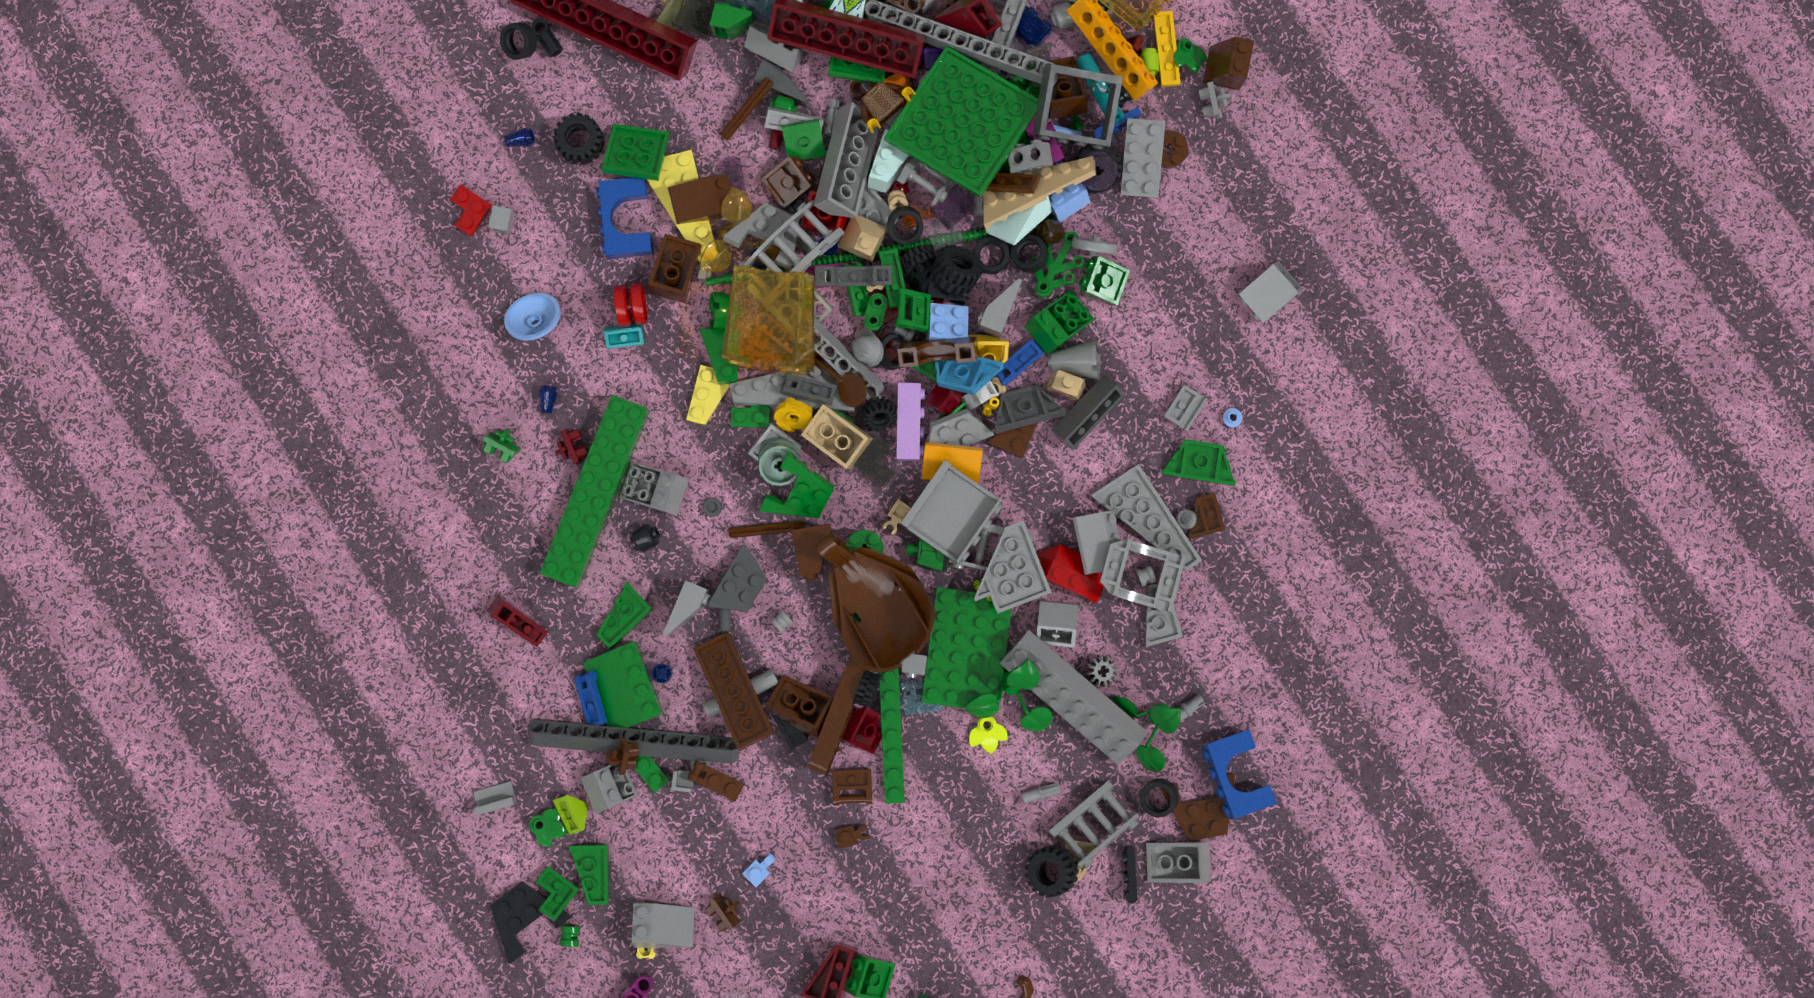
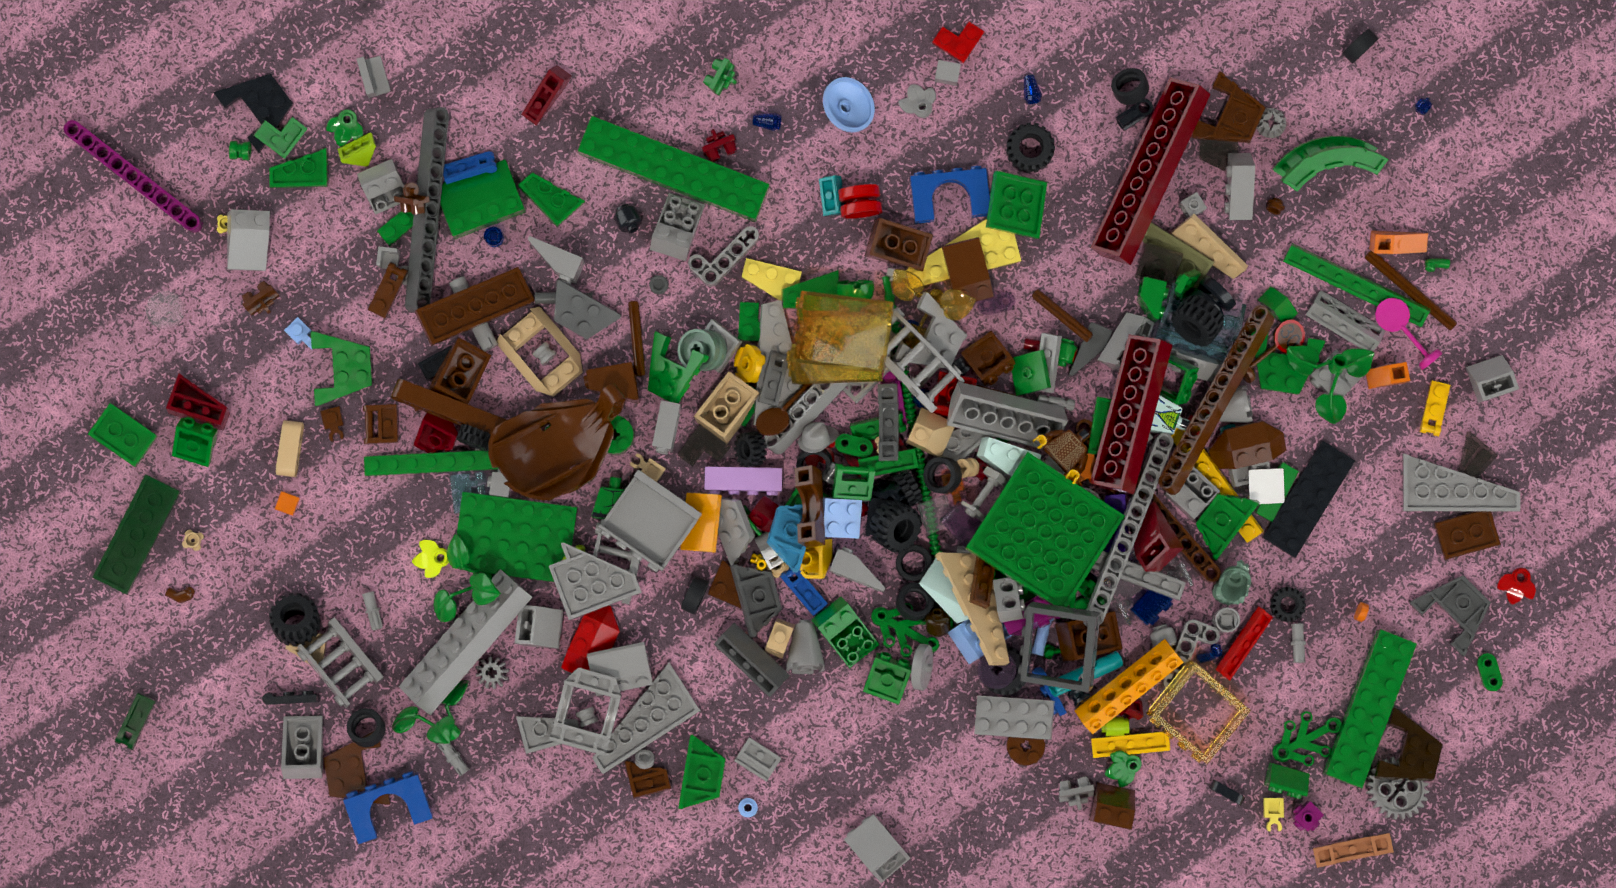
camera: 90 degrees right, 0 degrees up
(527, 251) = (916, 98): none -> light grey plate
(682, 437) = (725, 254): none -> light grey beam
(760, 643) = (522, 333): none -> tan wedge
(794, 818) = (350, 367): none -> green wing
(857, 497) = (666, 427): none -> light grey window
(877, 879) = (289, 448): none -> tan beam
(932, 881) = (287, 503): none -> orange tile
(970, 973) = (189, 534): none -> tan plate
(1024, 468) = (694, 595): none -> black tyre

